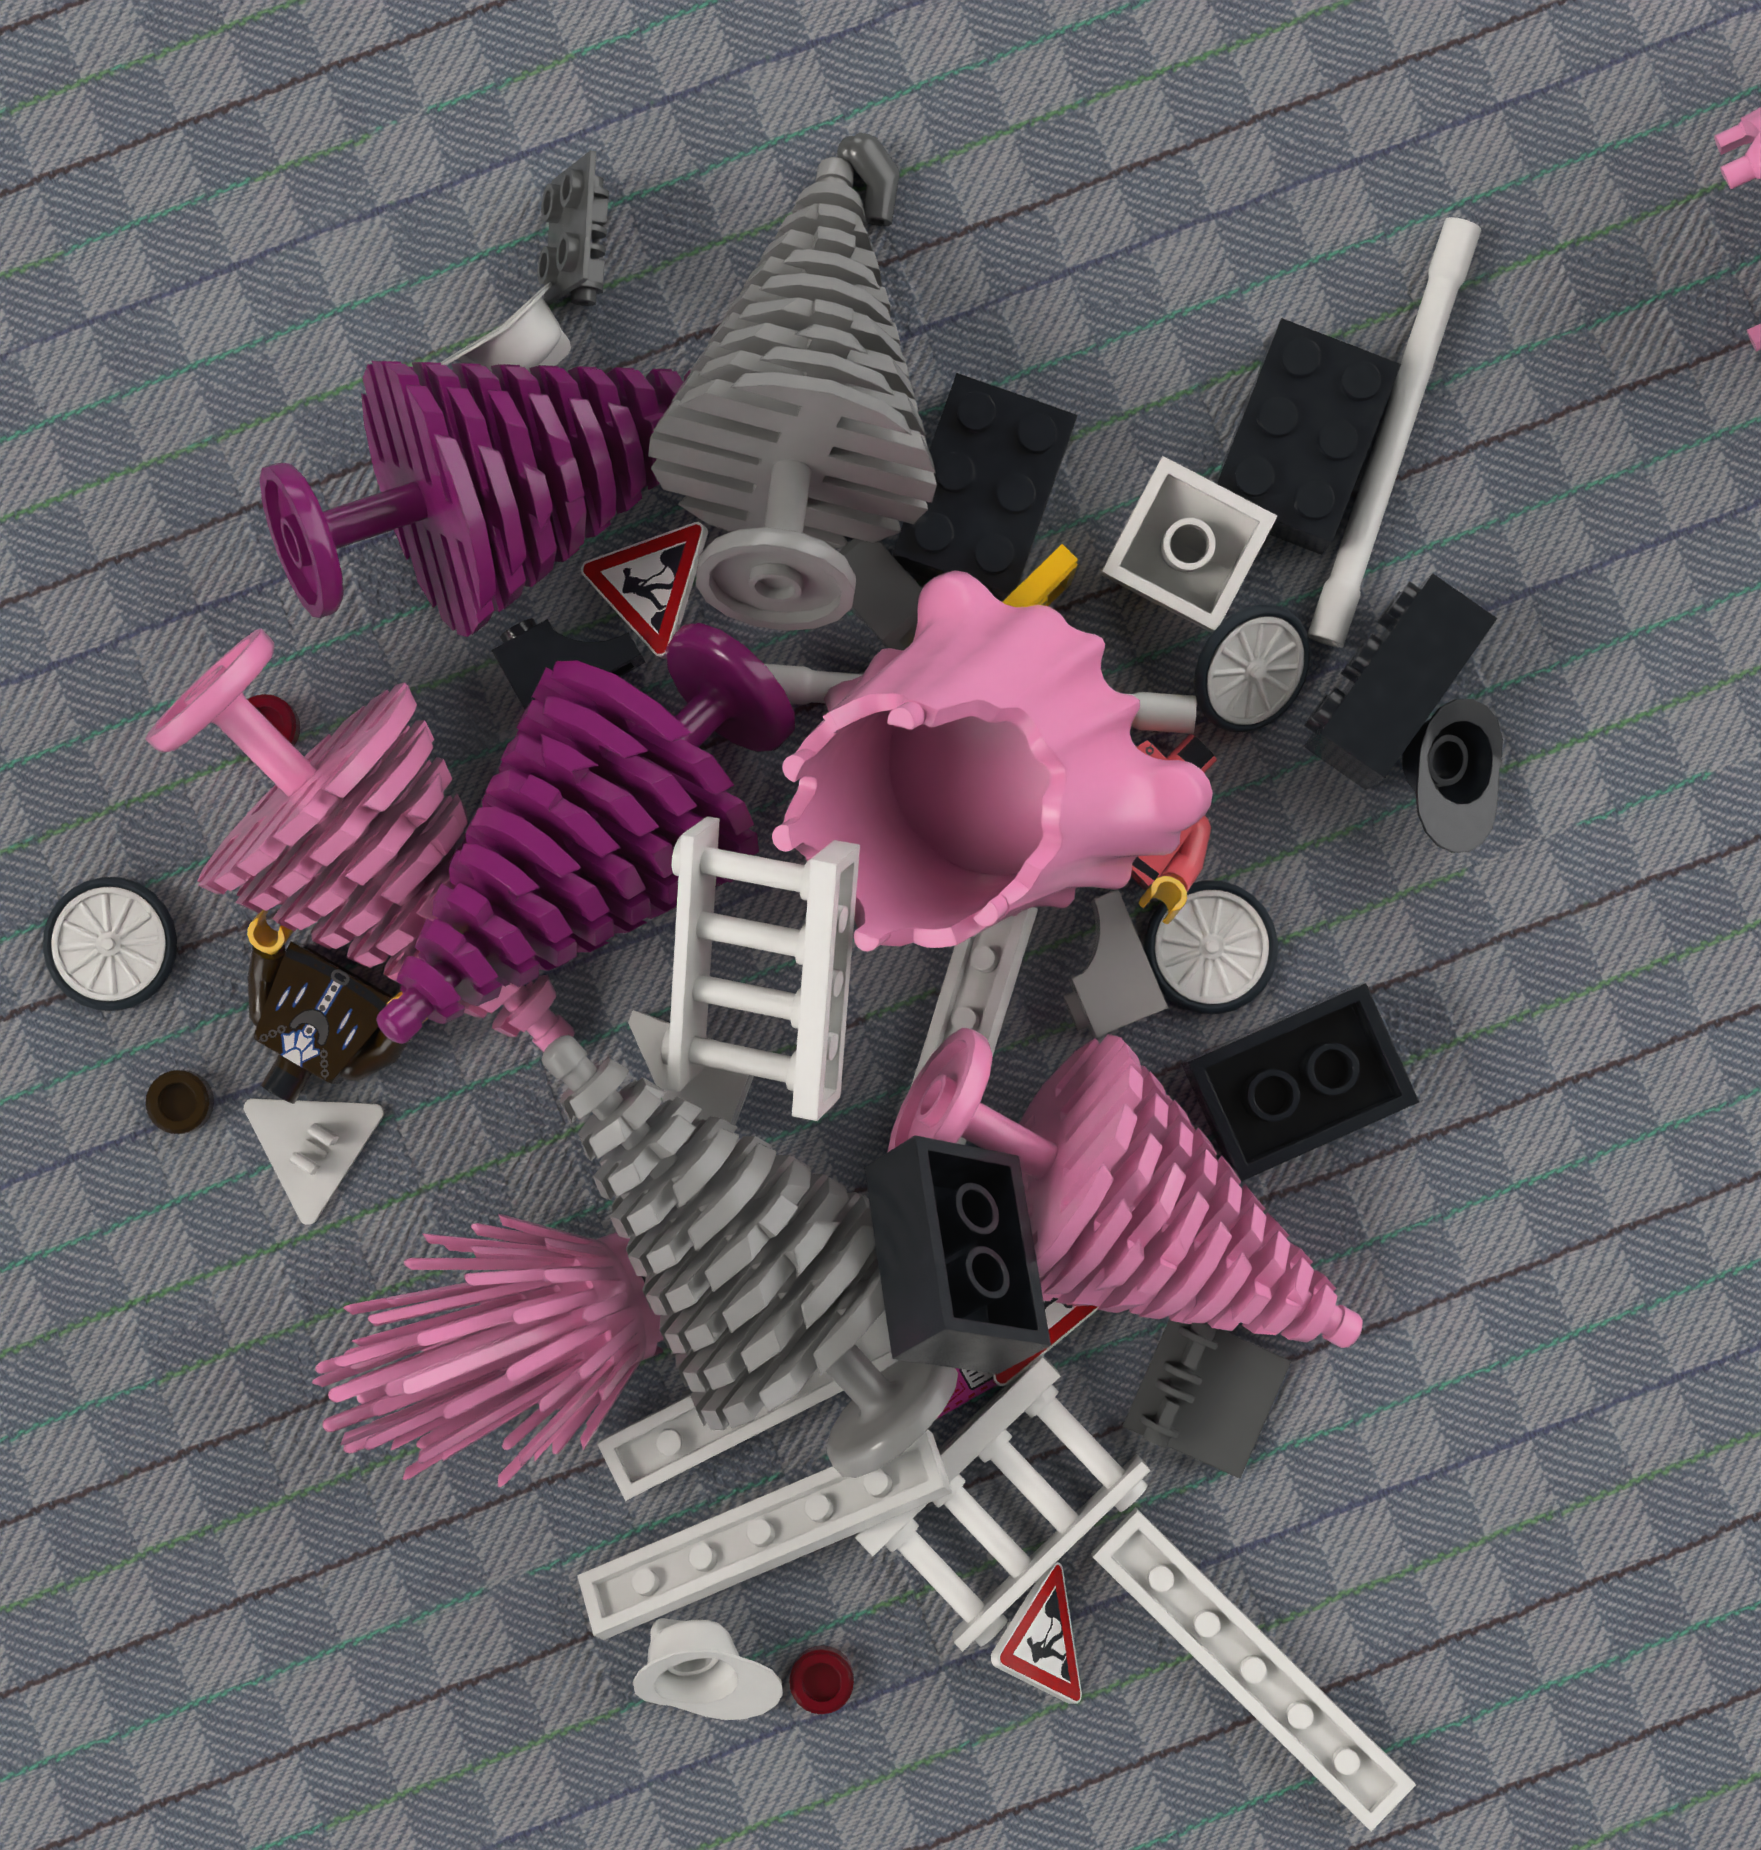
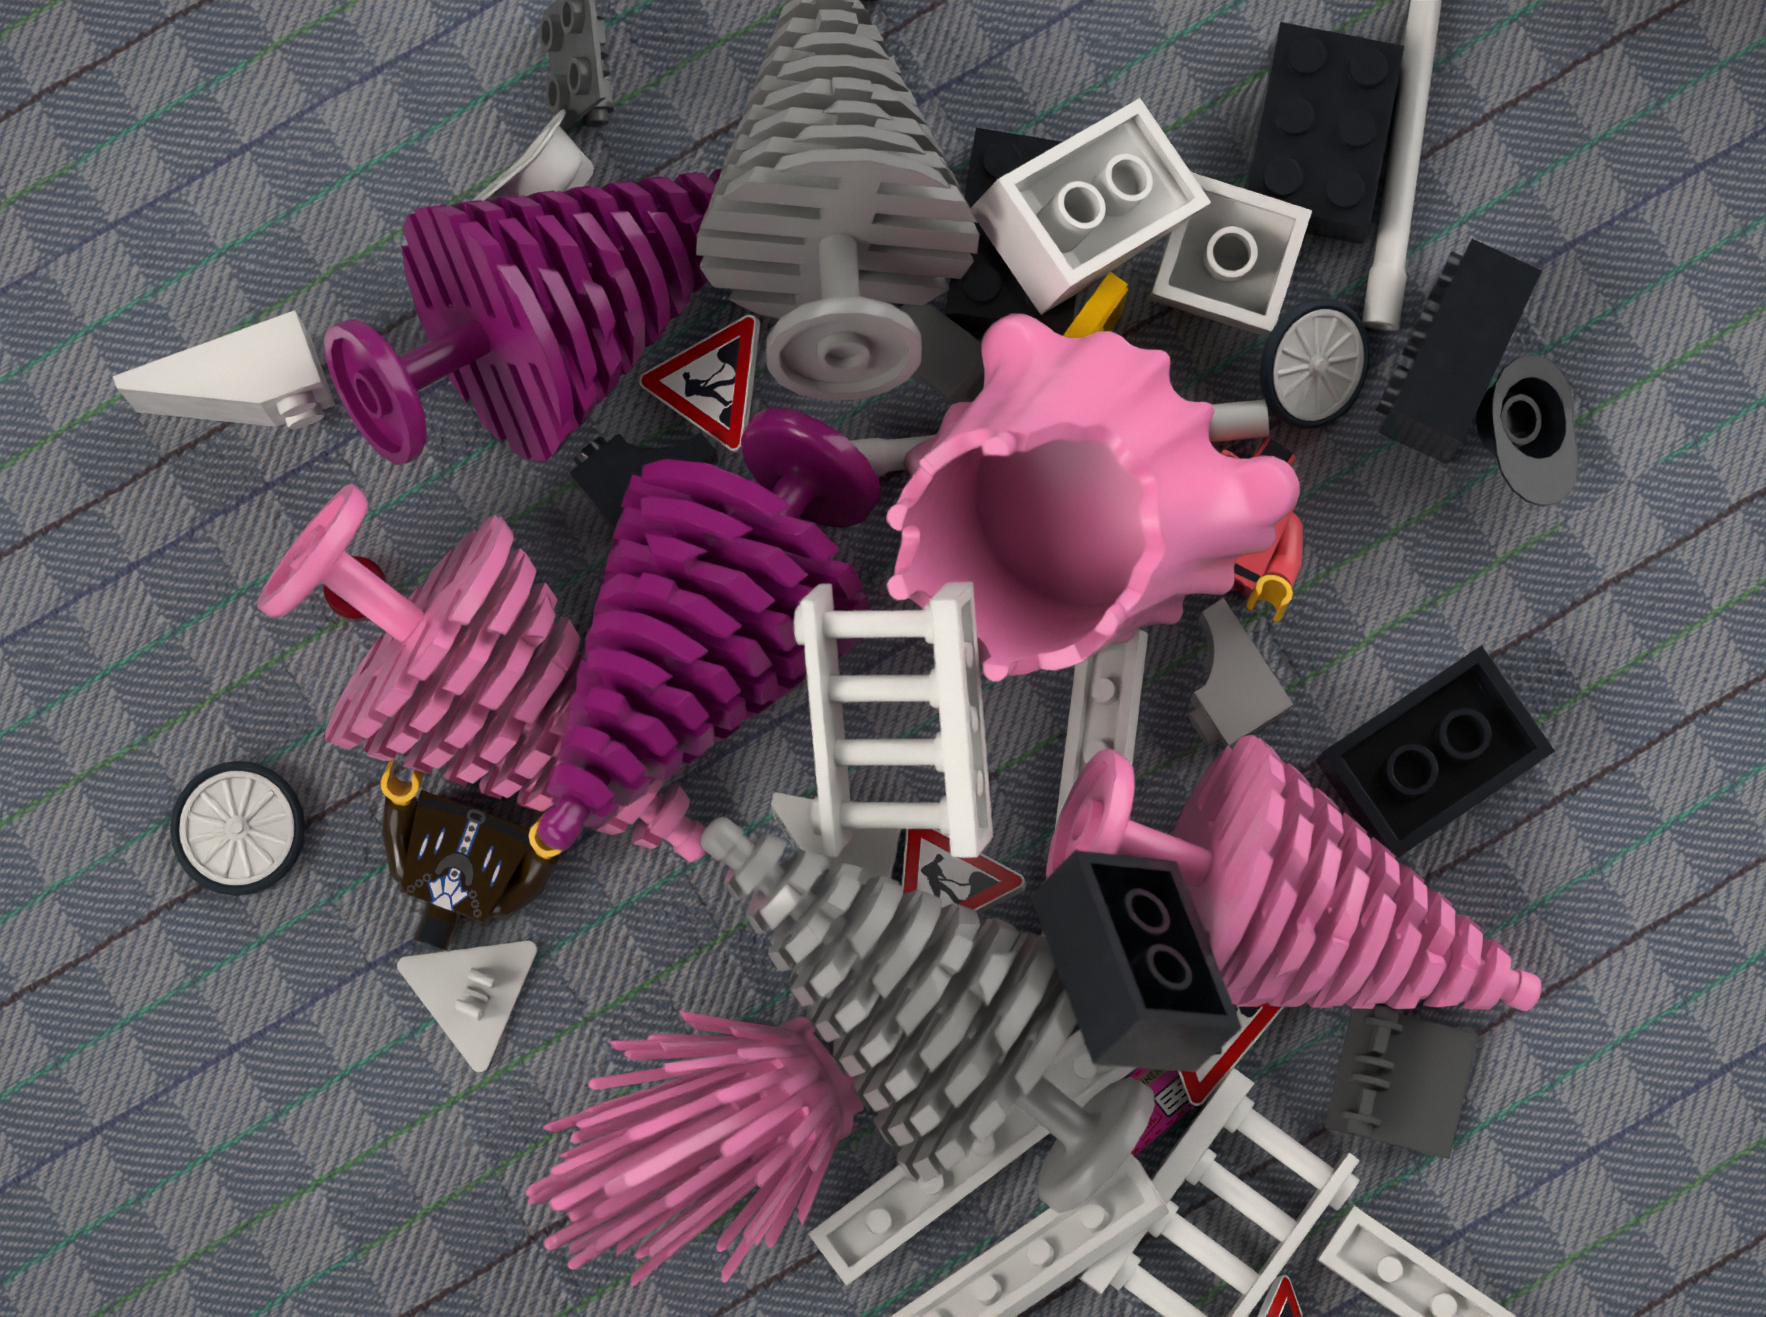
camera: 15 degrees left, 5 degrees down
(179, 1102) = (333, 972): dark brown tile -> none
(188, 496) = (246, 377): none -> white slope
(799, 1137) = (964, 881): none -> piece
(1053, 472) = (1088, 205): none -> white slope
(1214, 949) = (1327, 644): white wheel -> none

